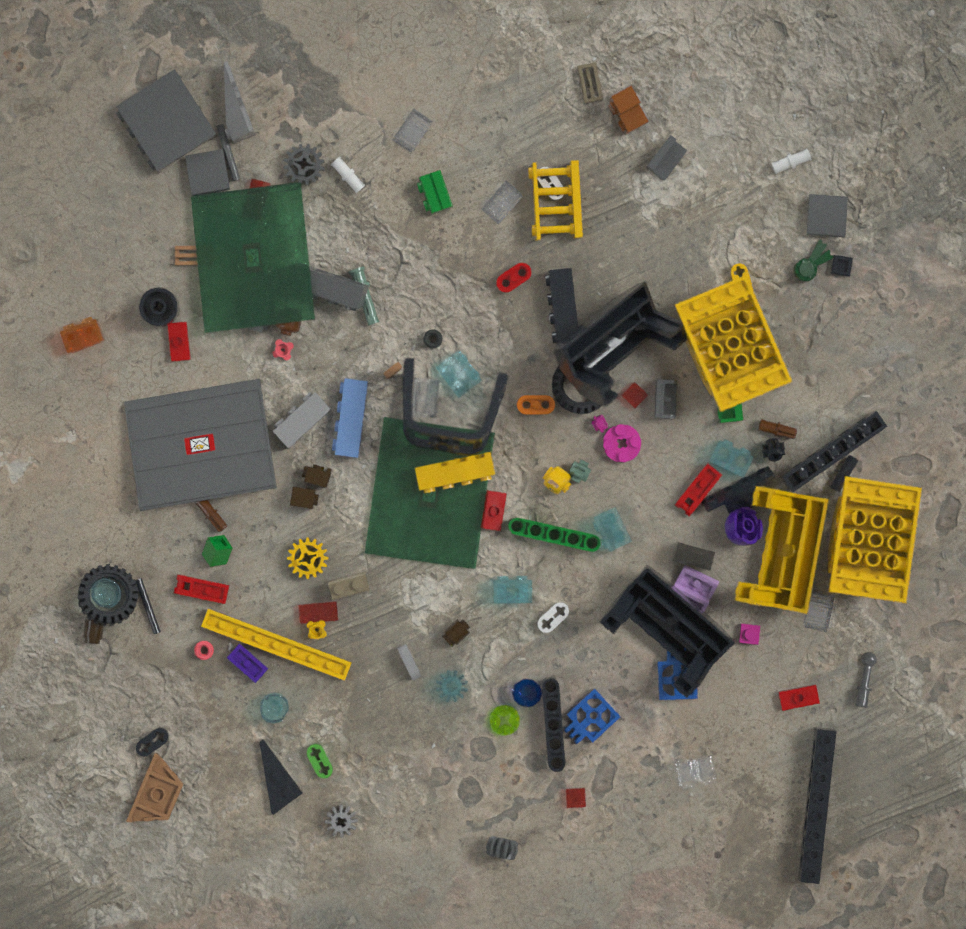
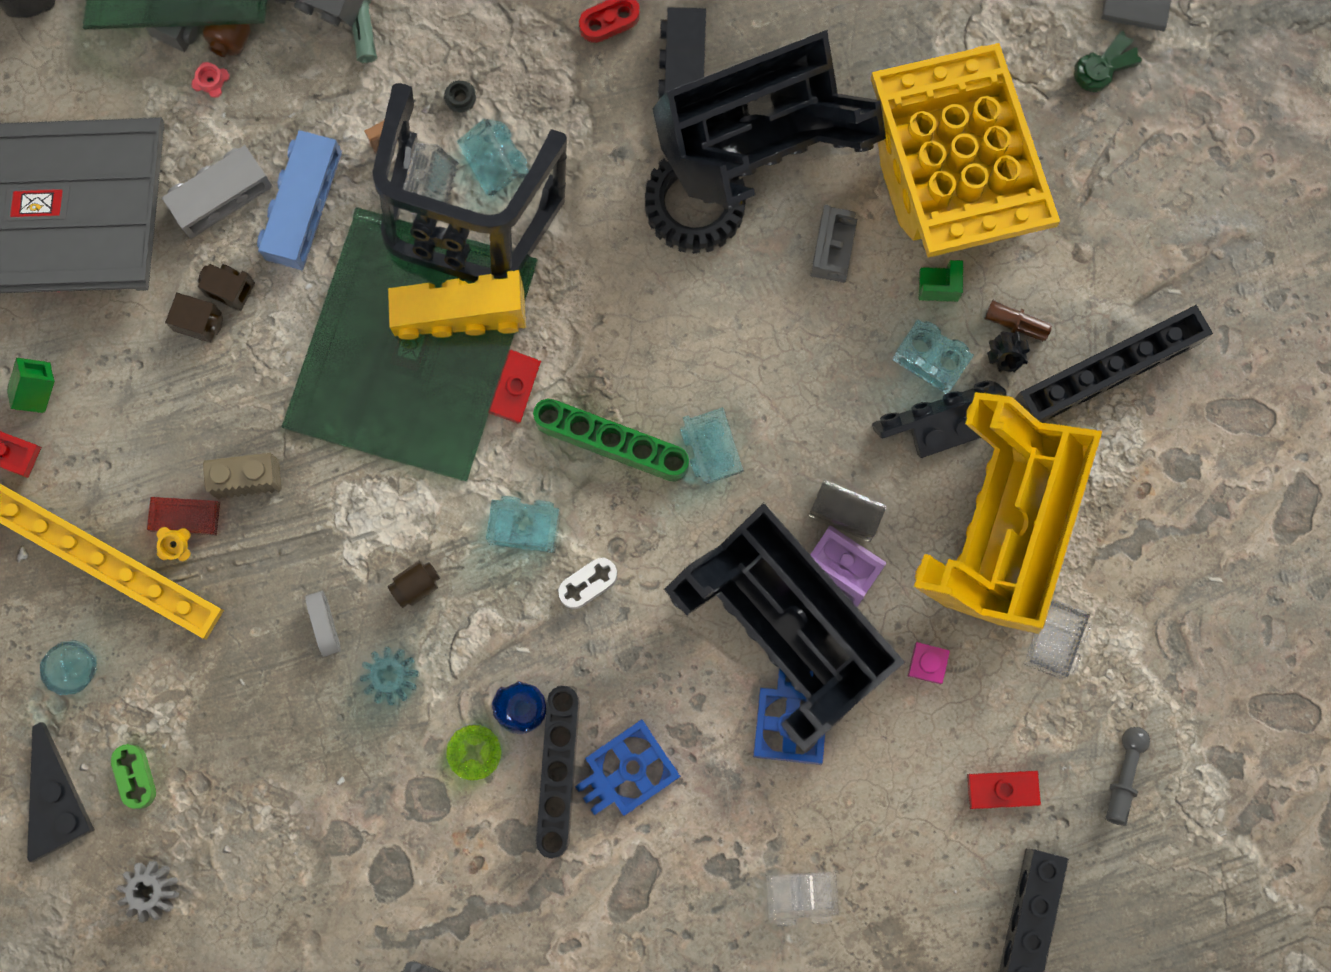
camera: 10 degrees right, 10 degrees down
(179, 341) = (43, 44): red plate -> none
(212, 515) = (35, 324): reddish brown axle -> none
(247, 663) = (41, 584): dark purple plate -> none
(311, 566) = (174, 407): yellow gear -> none
(535, 404) = (614, 220): orange plate -> none
(557, 480) = (630, 349): yellow head -> none
(575, 797) = (578, 913): clear red tile -> none
(579, 471) = (671, 340): sand green gear -> none
(599, 423) = (716, 269): dark pink plate -> none
(620, 432) = (750, 326): dark pink plate -> none
(634, 395) = (782, 233): clear red tile -> none
(698, 489) = (871, 400): red plate -> none
(743, 527) = (940, 471): dark purple cylinder -> none
(841, 265) = (1154, 76): black tile -> none
(845, 470) = (1125, 411): black axle -> none
(873, 539) = (1173, 517): yellow wedge -> none

